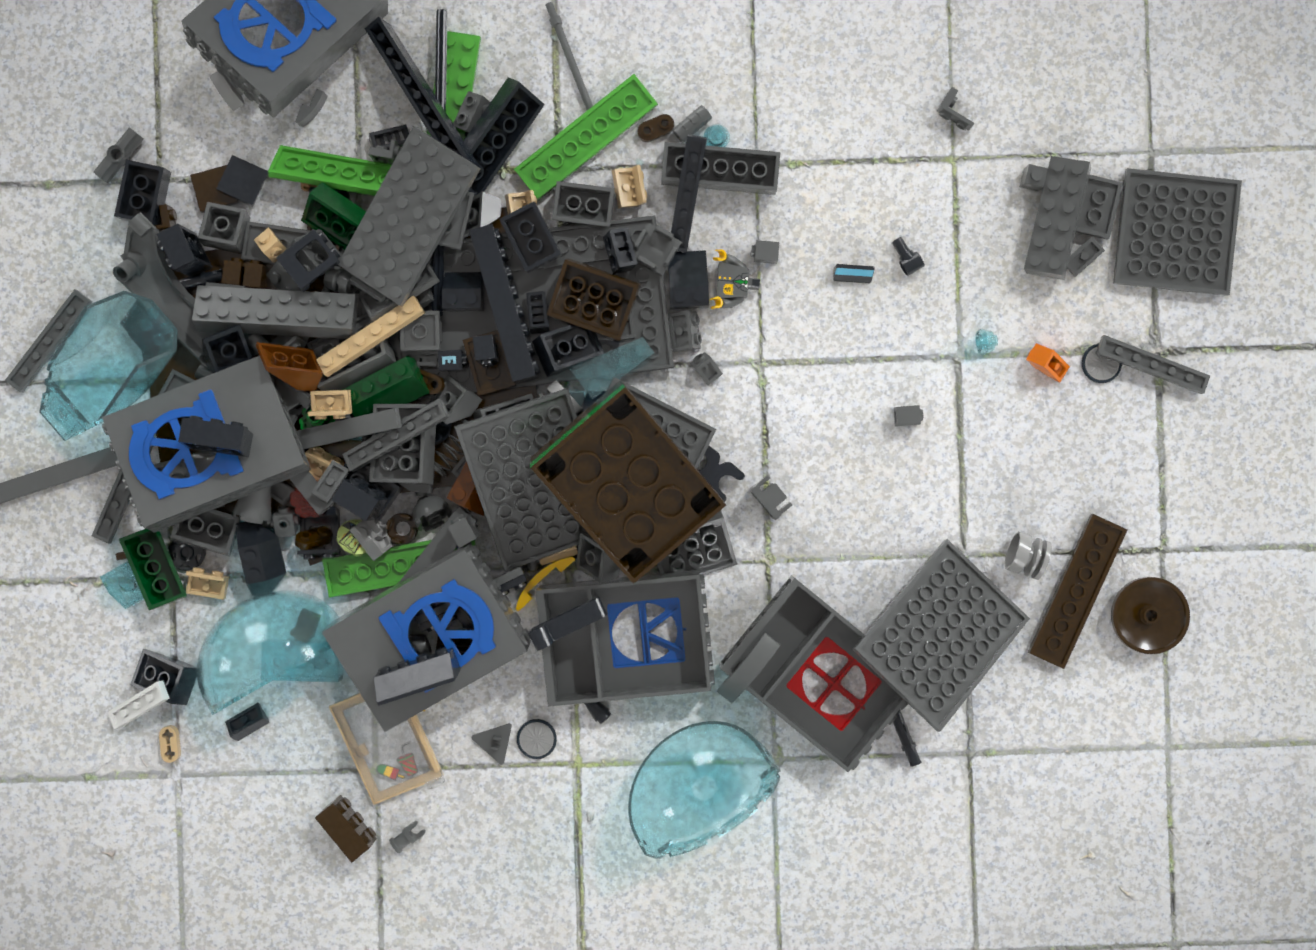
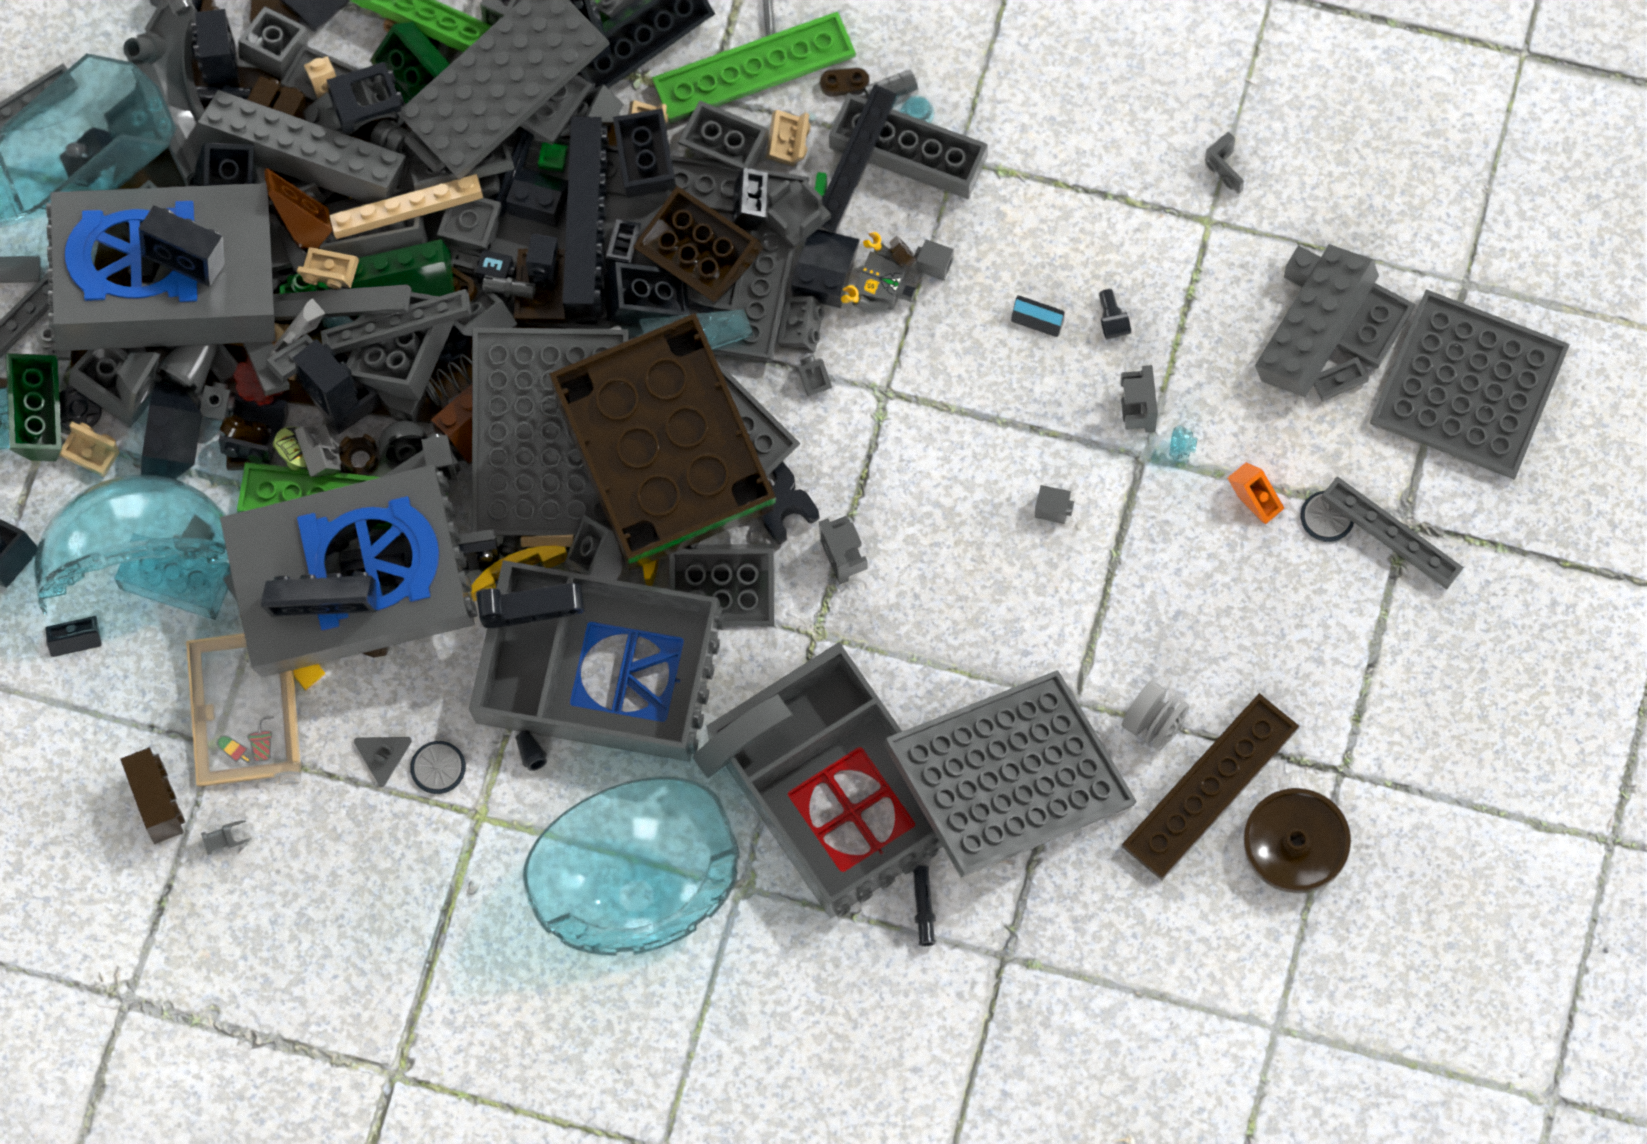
camera: 15 degrees right, 20 degrees down
(120, 361) = (84, 149): none -> black piece
(220, 530) = (136, 378): none -> dark grey slope
(326, 455) = (305, 321): none -> light grey slope
(463, 258) = (552, 157): none -> green tile
(467, 374) = (509, 287): none -> dark grey pin
(666, 220) = (821, 183): none -> green tile
(742, 254) = (901, 252): none -> dark brown plate
(949, 319) = (1139, 399): none -> dark grey panel

